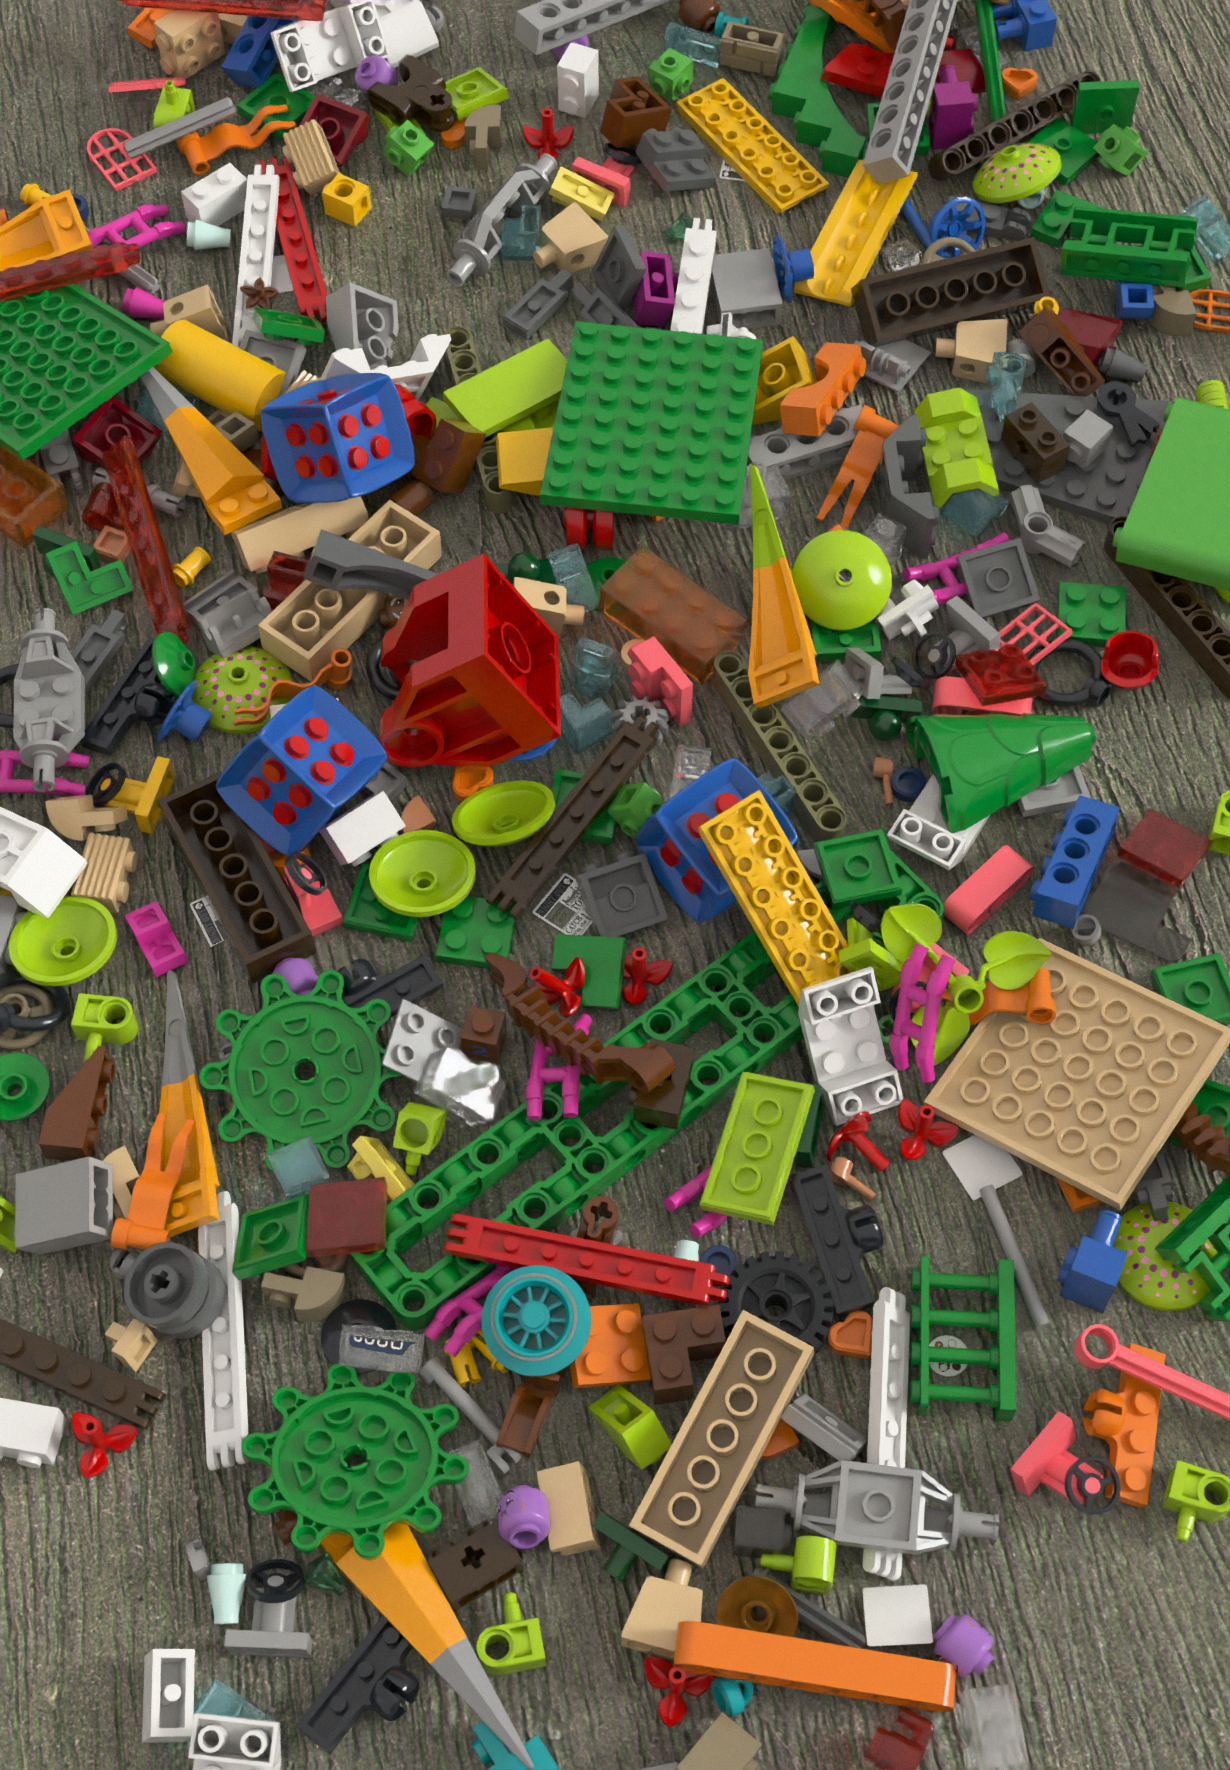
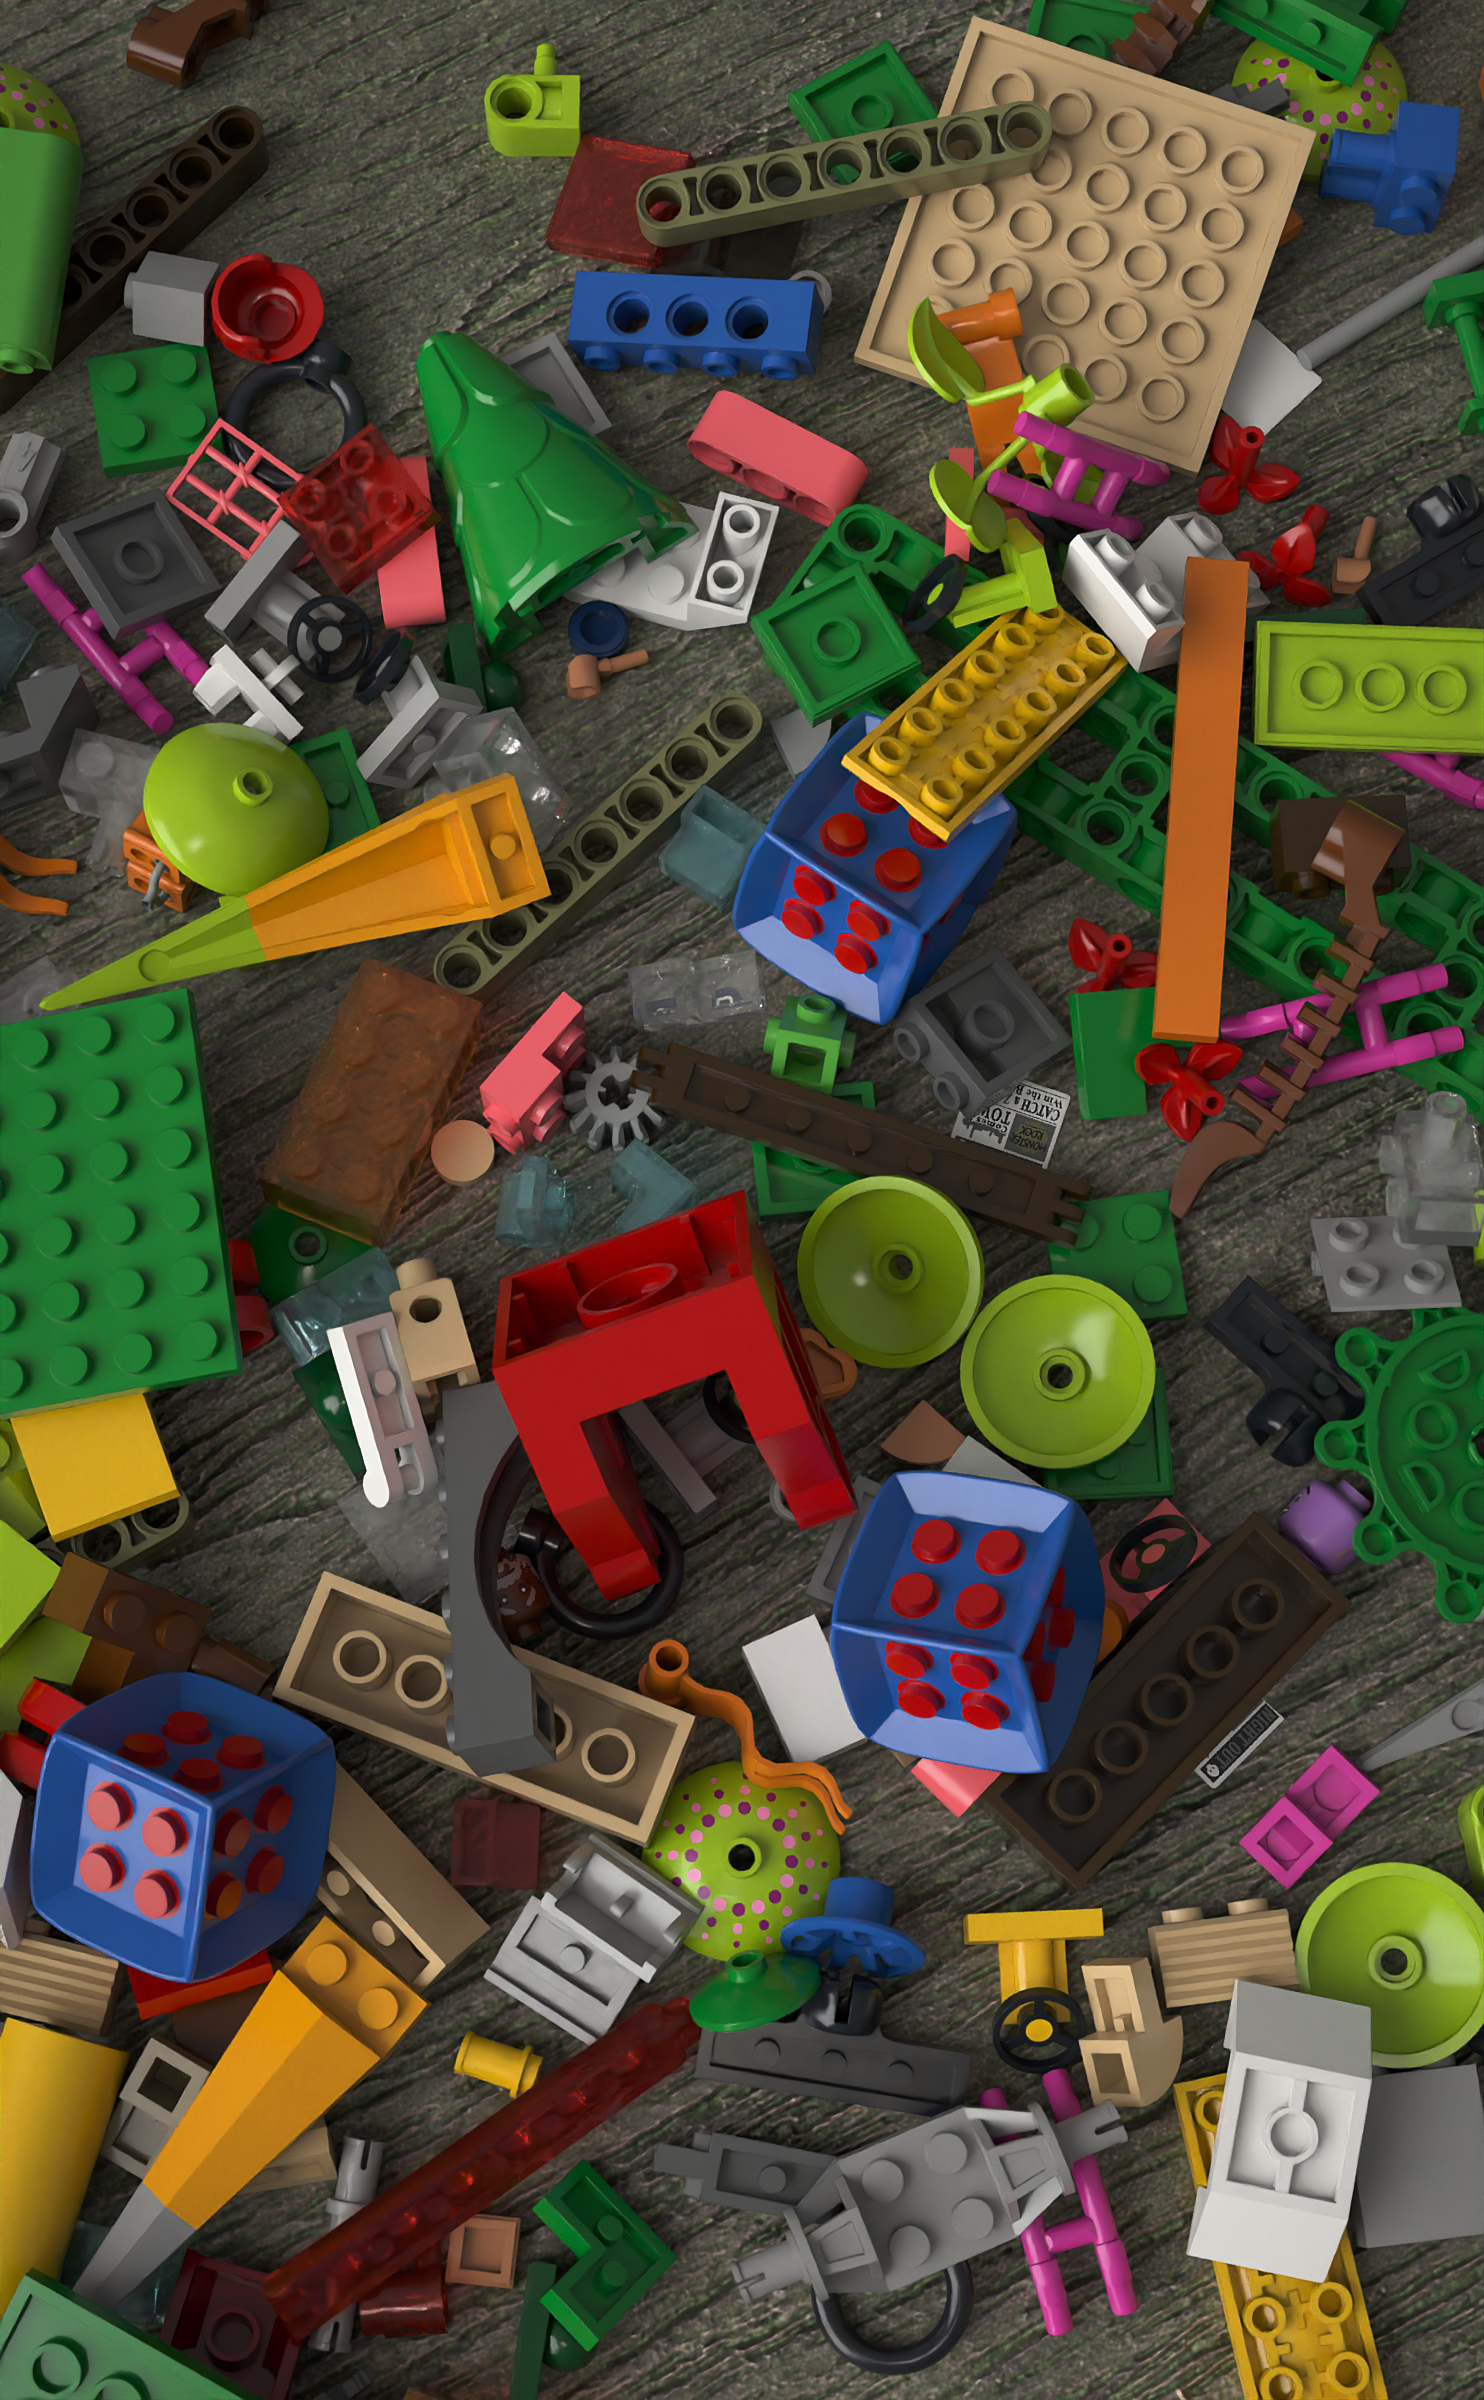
camera: 110 degrees left, 15 degrees up
(484, 1034) = (1316, 1179): reddish brown brick -> none
(528, 564) = (383, 1409): none -> white plate
(718, 1028) = (1201, 801): none -> orange tile
(1143, 952) = (865, 152): none -> olive beam
(1154, 620) = (172, 298): none -> light grey brick

